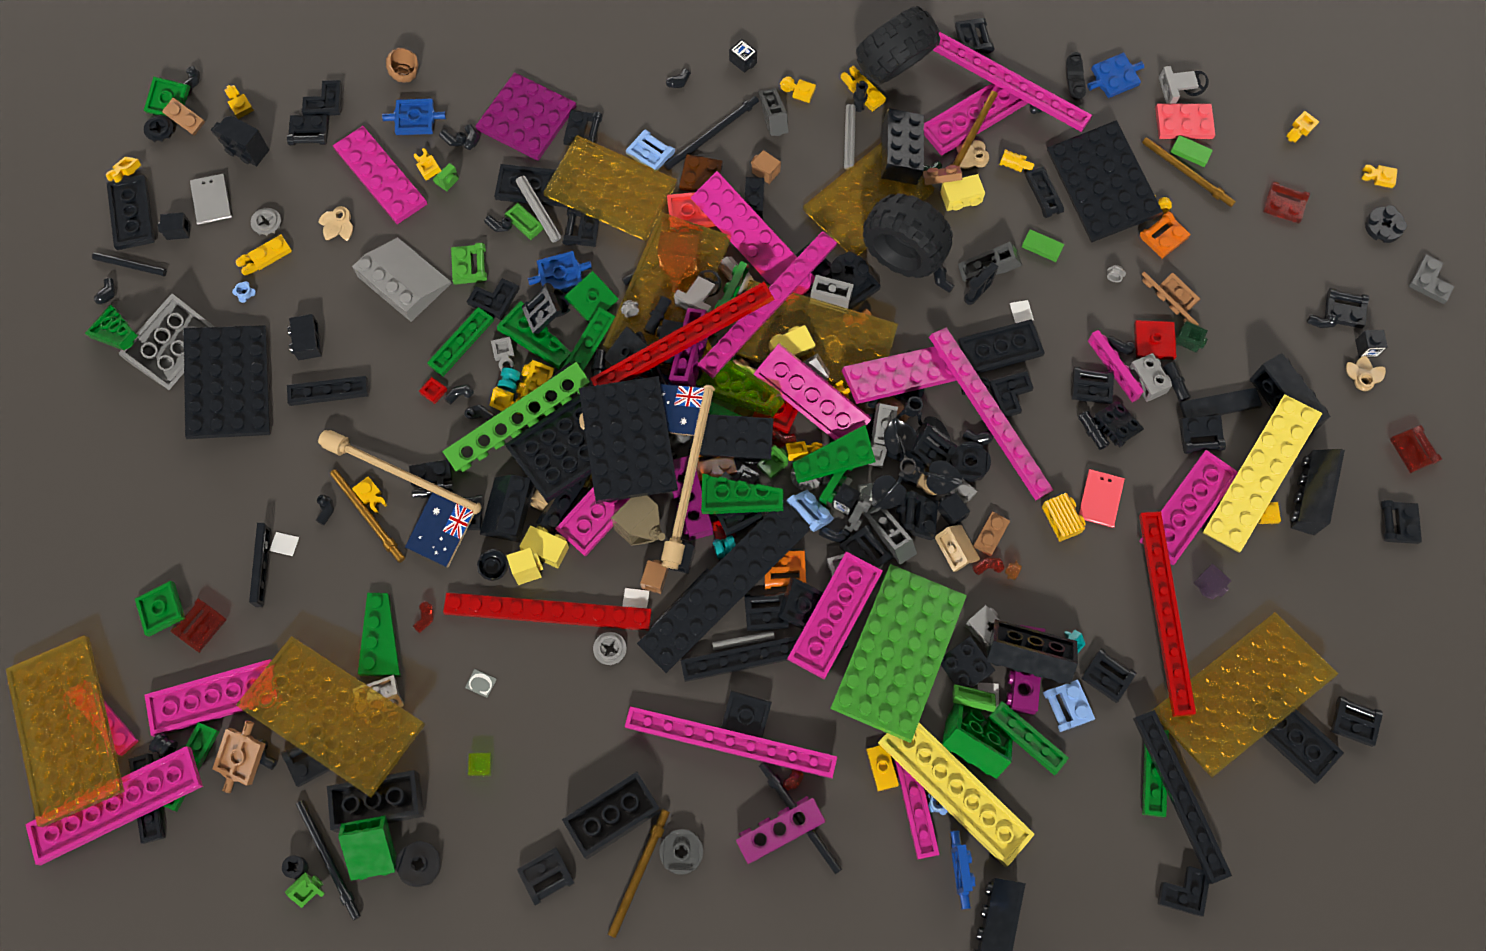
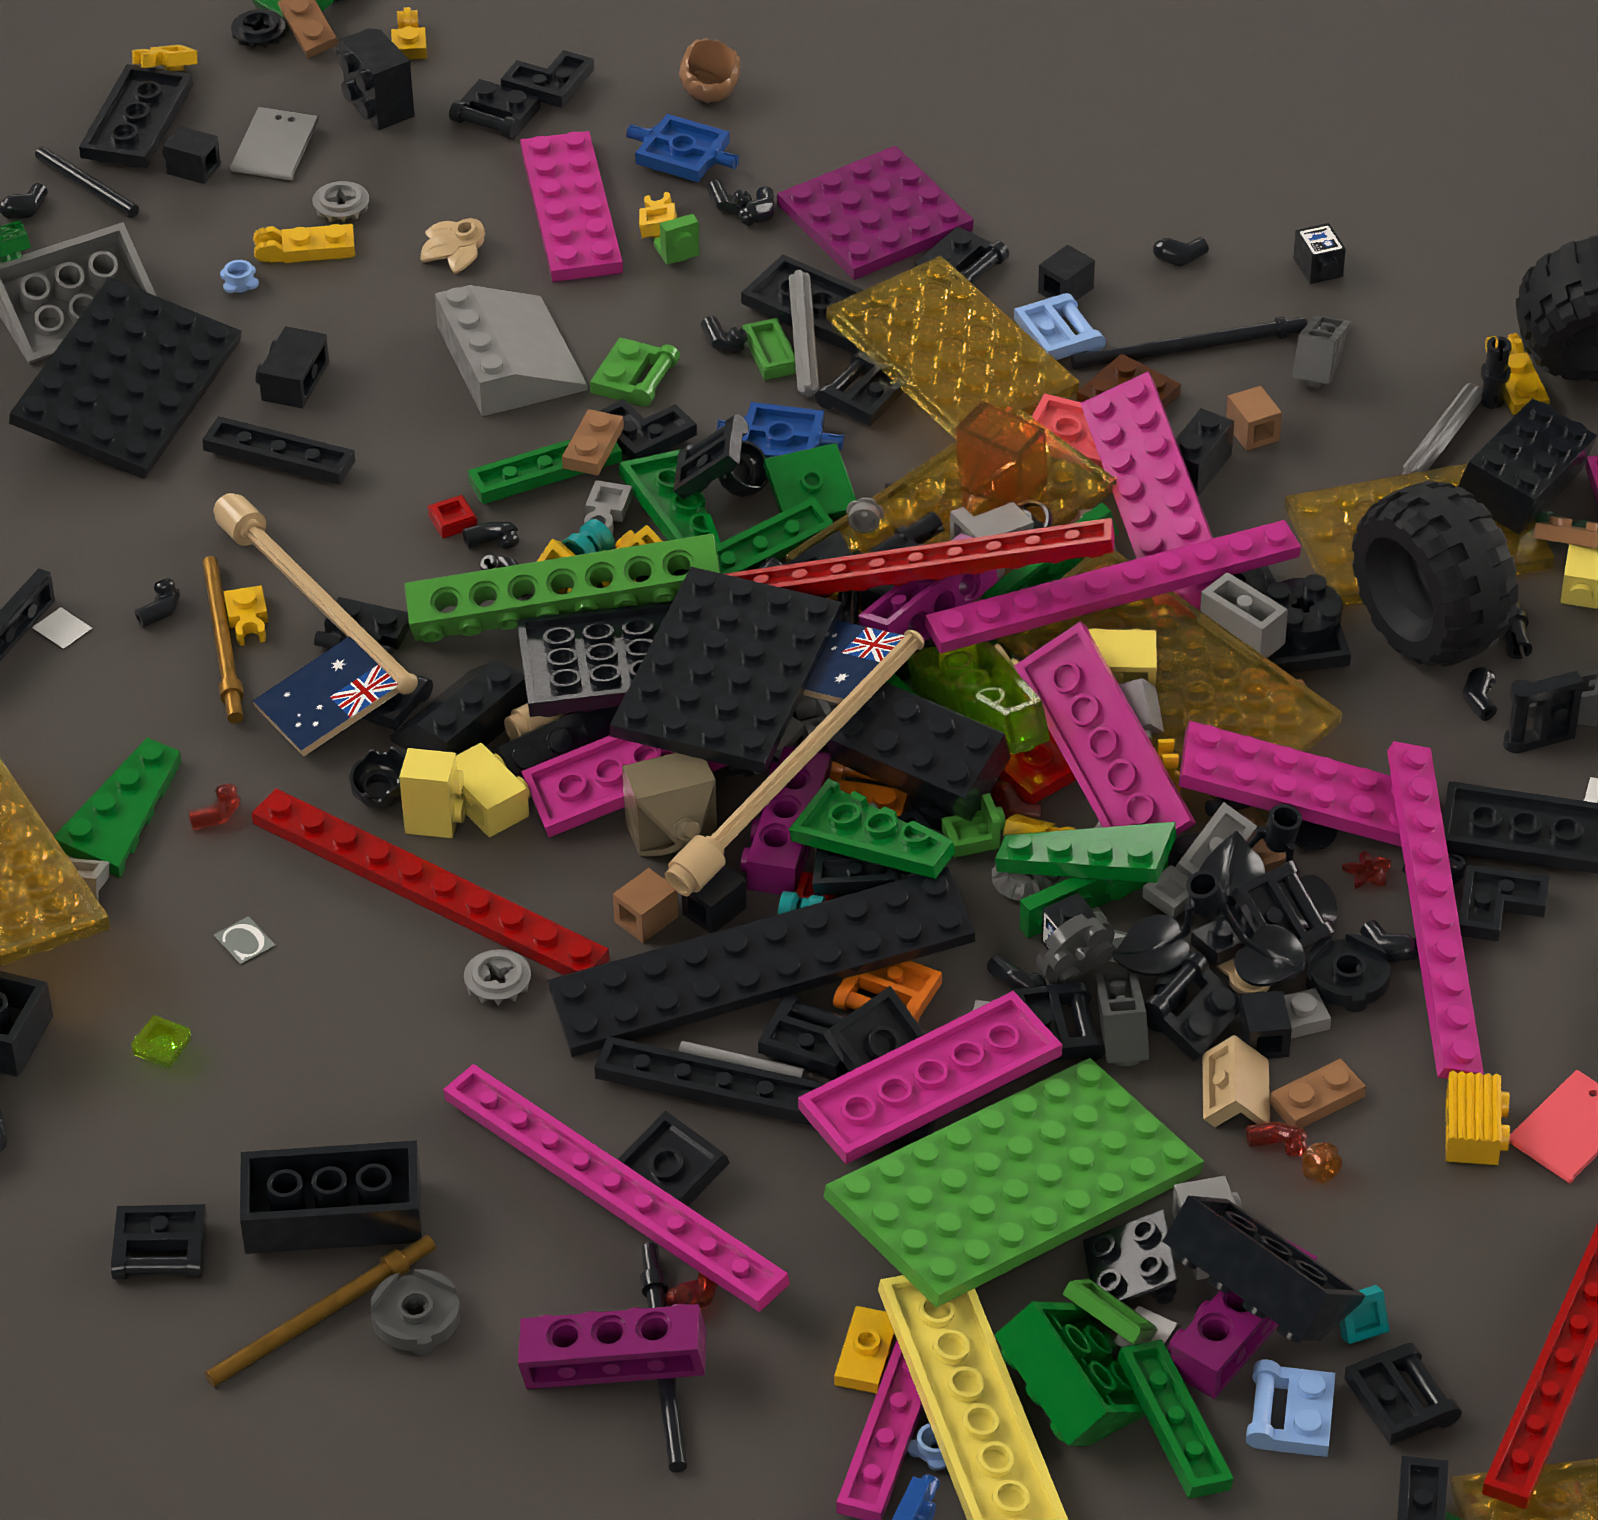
camera: 30 degrees right, 25 degrees down
(478, 320) = (592, 442): none -> medium nougat plate
(635, 598) = (596, 928): white sticker -> none
(637, 118) = (1066, 272): none -> black brick
(802, 91) = (1397, 341): yellow plate -> none
(810, 510) = (992, 917): light blue plate -> none
(947, 400) = (1368, 869): none -> clear red plant

